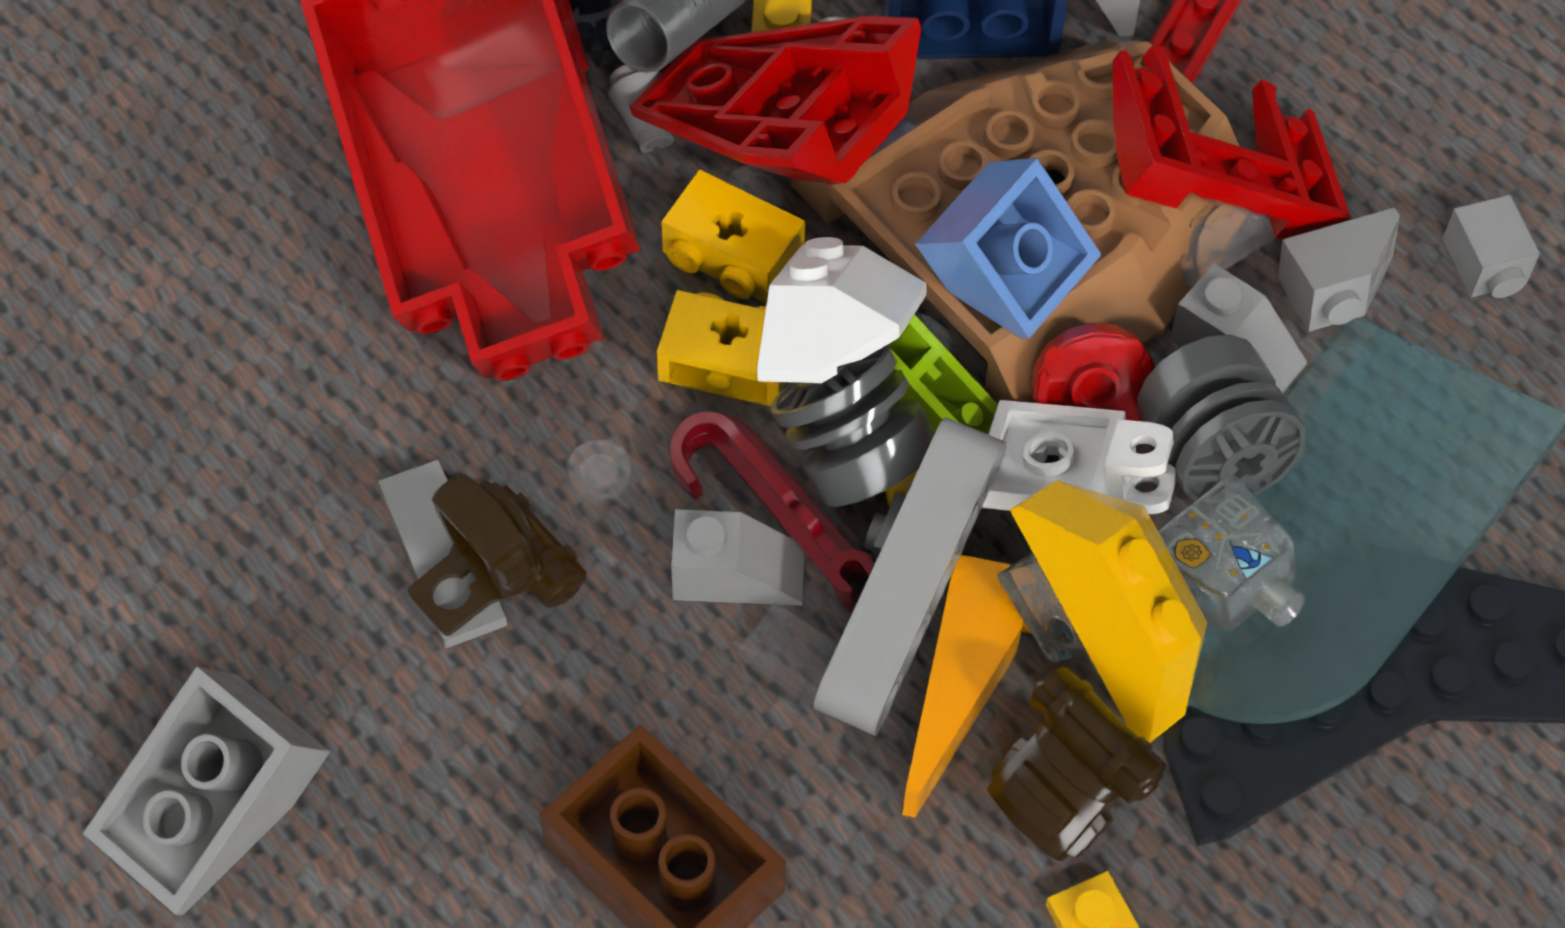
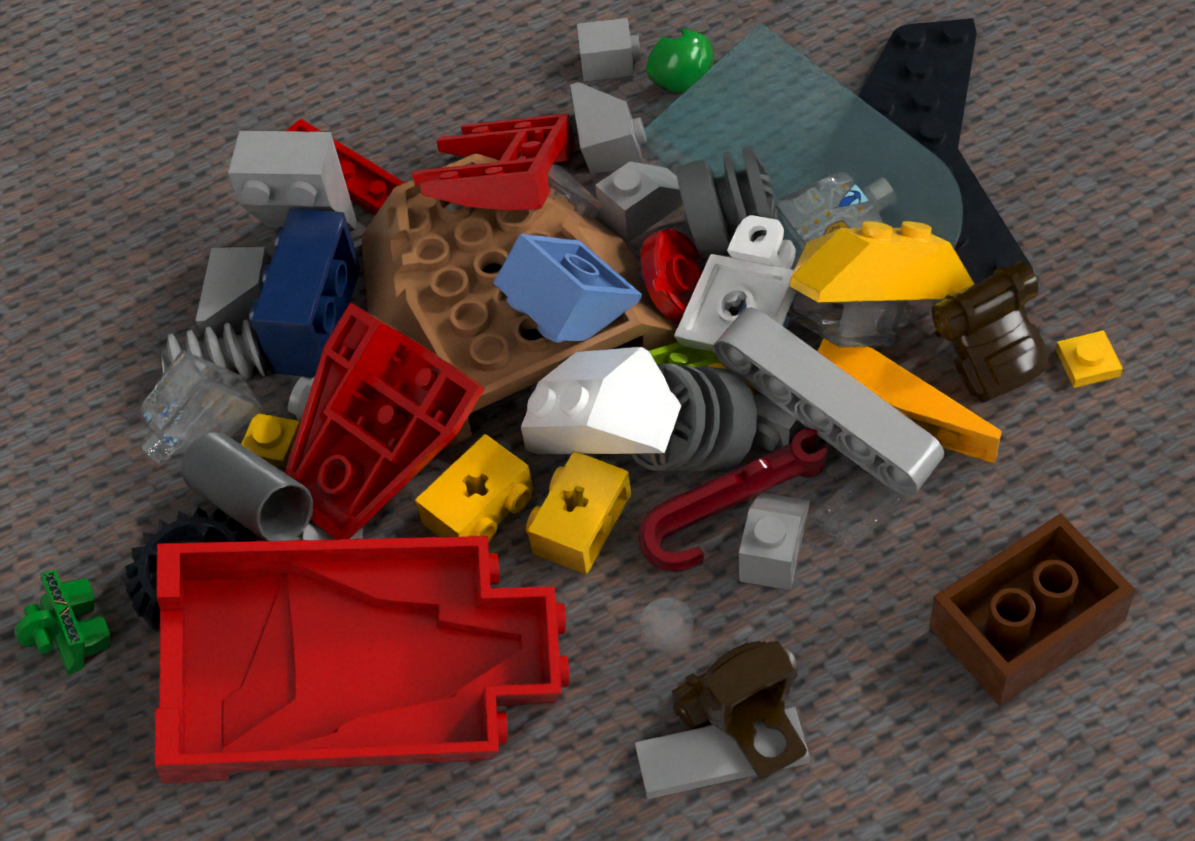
camera: 70 degrees left, 5 degrees down
(1482, 338) = (680, 62): none -> green hair

